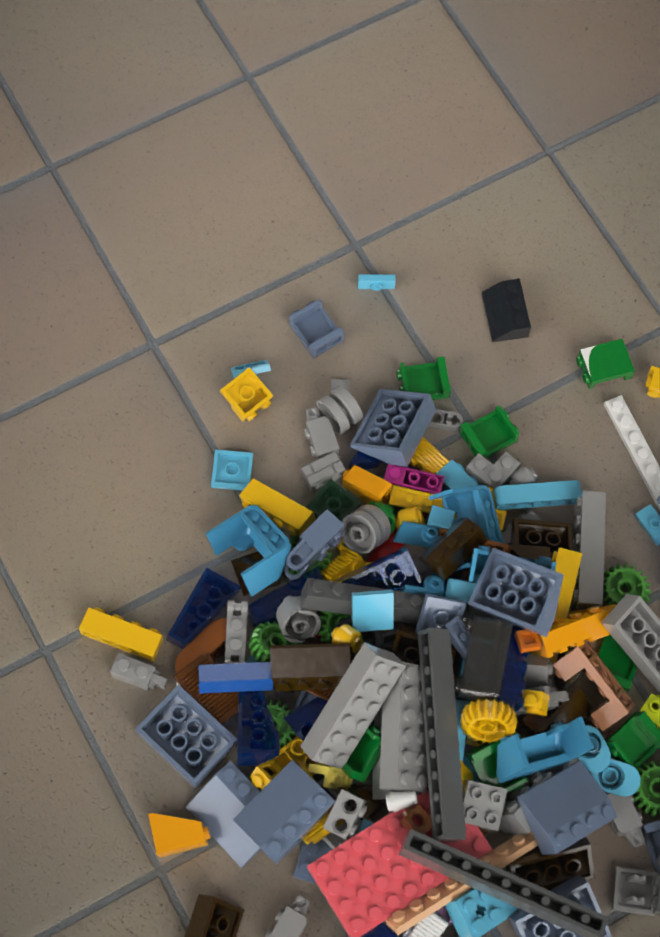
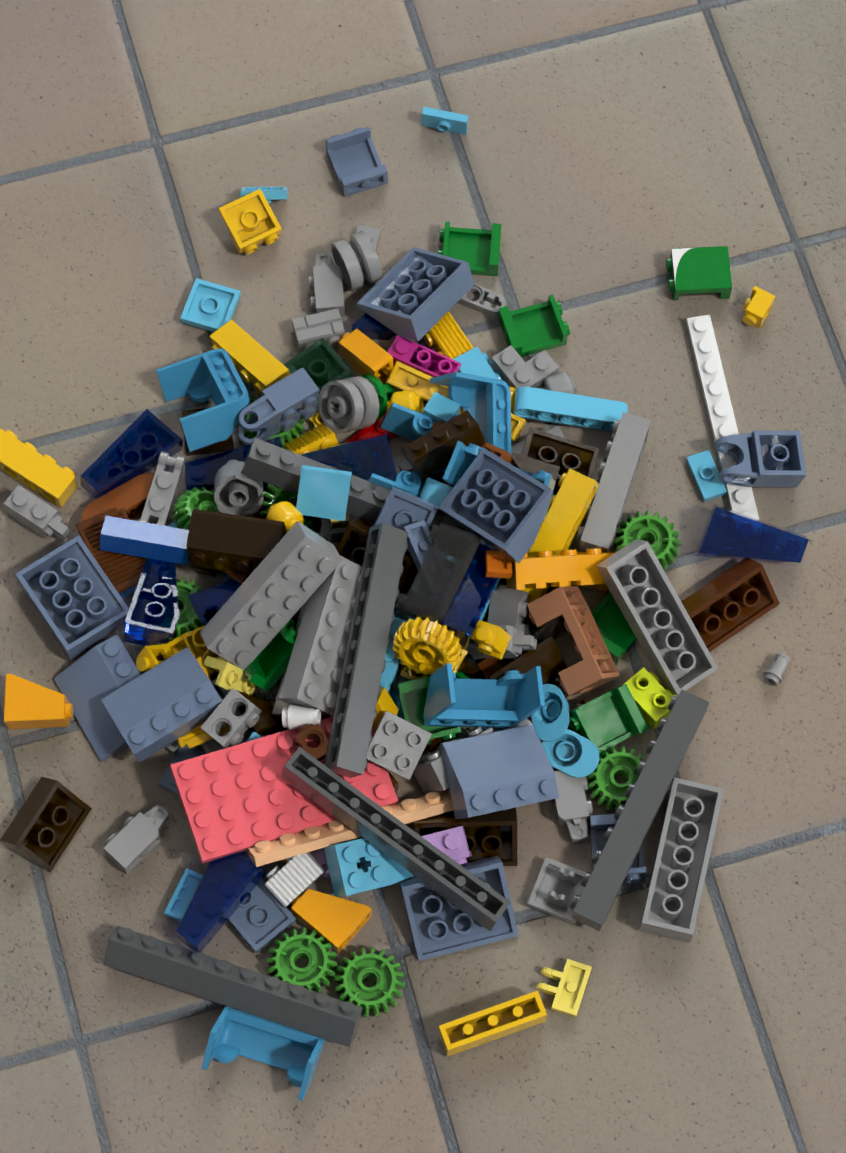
camera: 15 degrees right, 0 degrees up
(506, 311) = (595, 186): black slope -> none
(542, 875) = (452, 843): none -> lavender bracket

